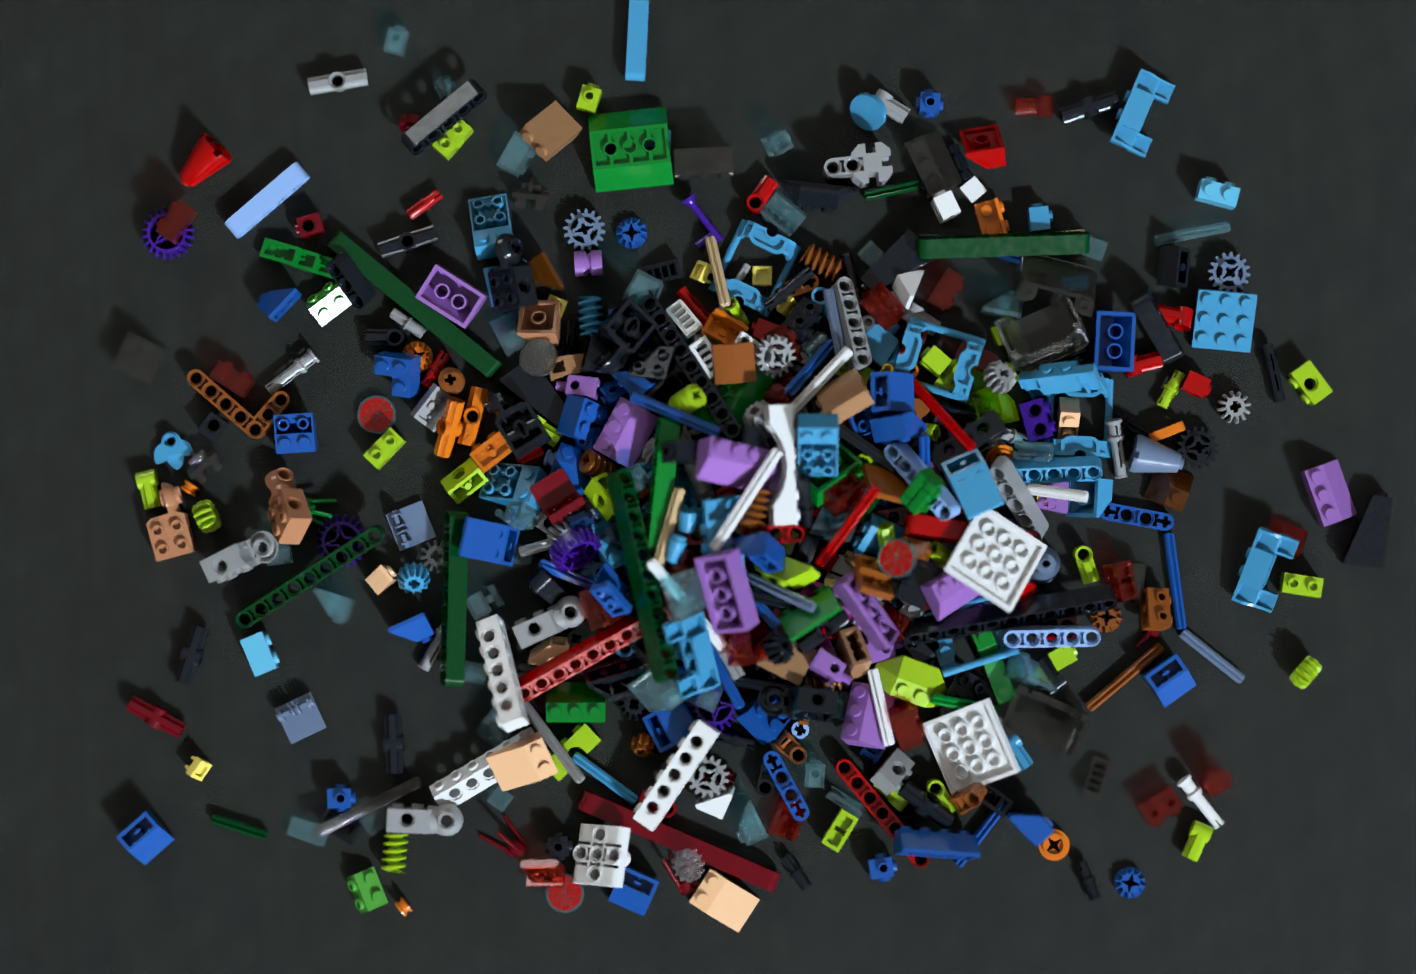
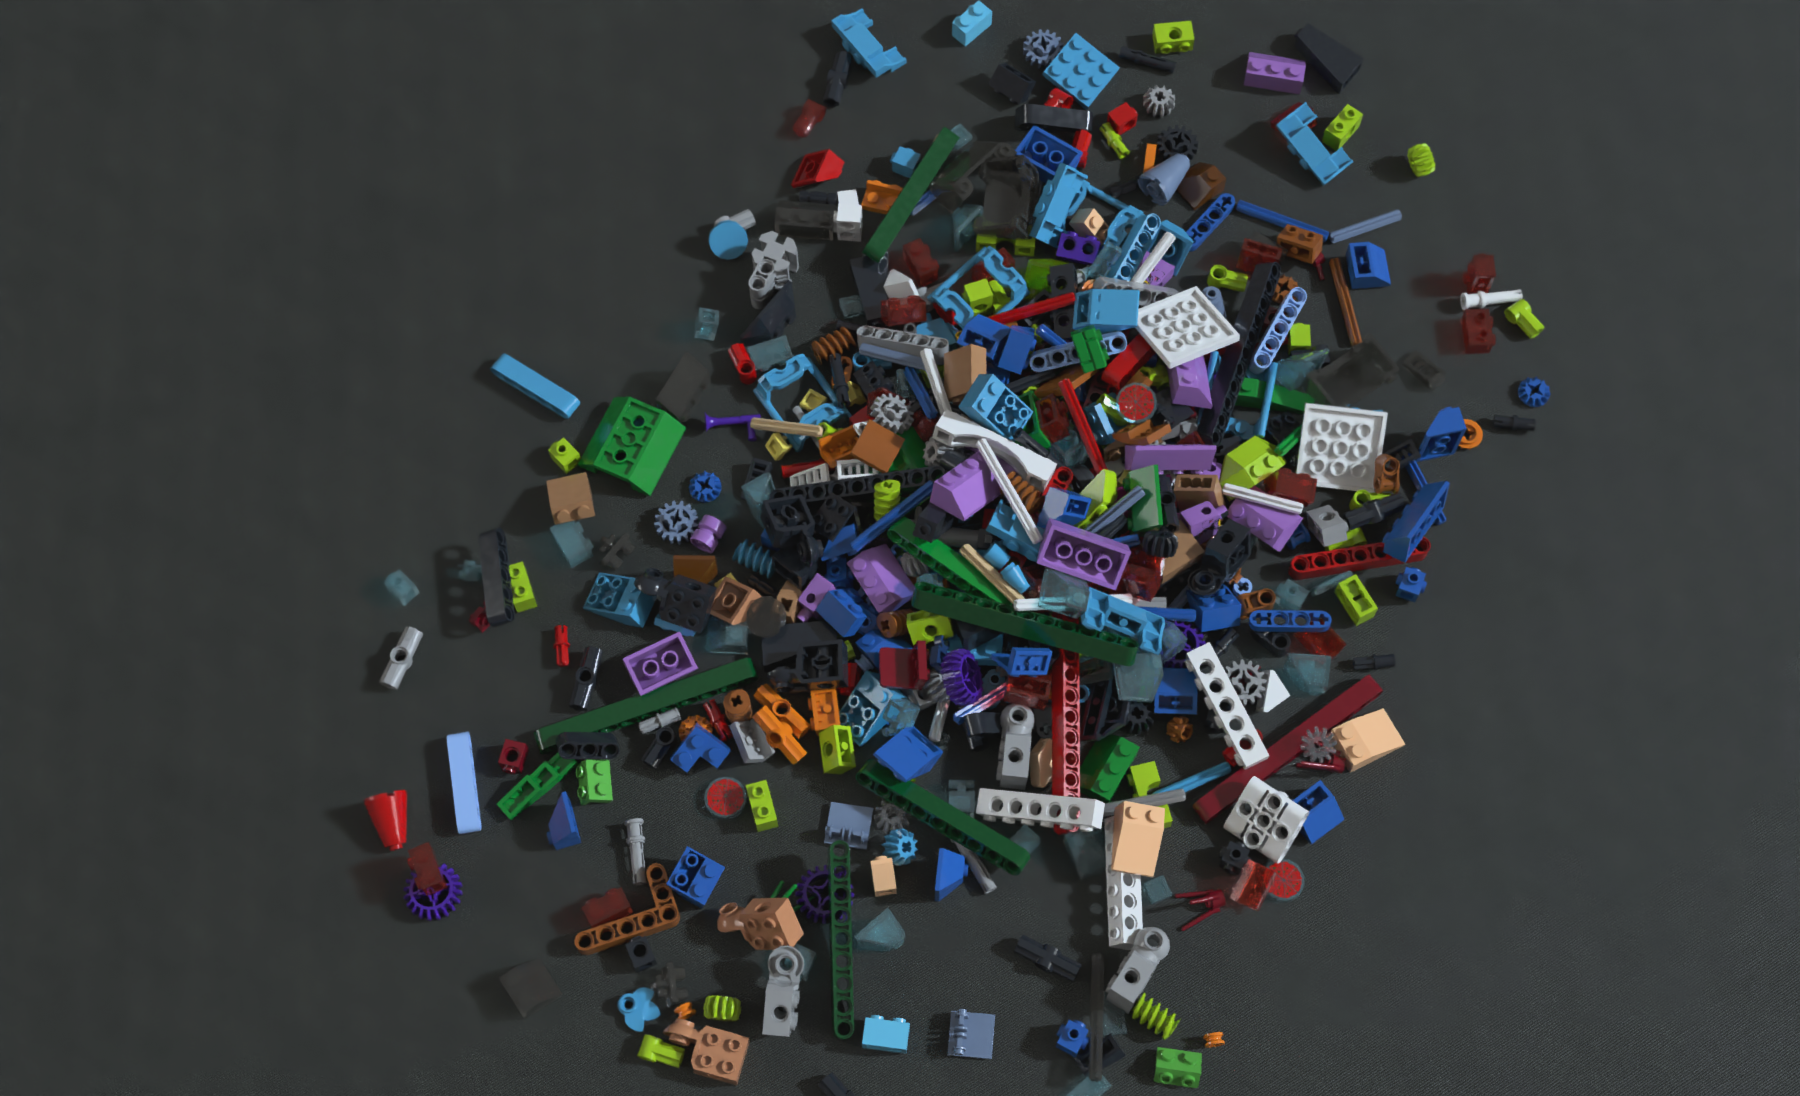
camera: 55 degrees left, 20 degrees down
(892, 189) = (806, 261): dark green axle -> none
(926, 110) = (753, 192): blue brick -> none
(999, 377) = (1023, 250): light grey gear -> none
(1116, 437) = (1131, 198): light grey pin -> none
(1192, 233) = (992, 60): clear light blue axle -> none

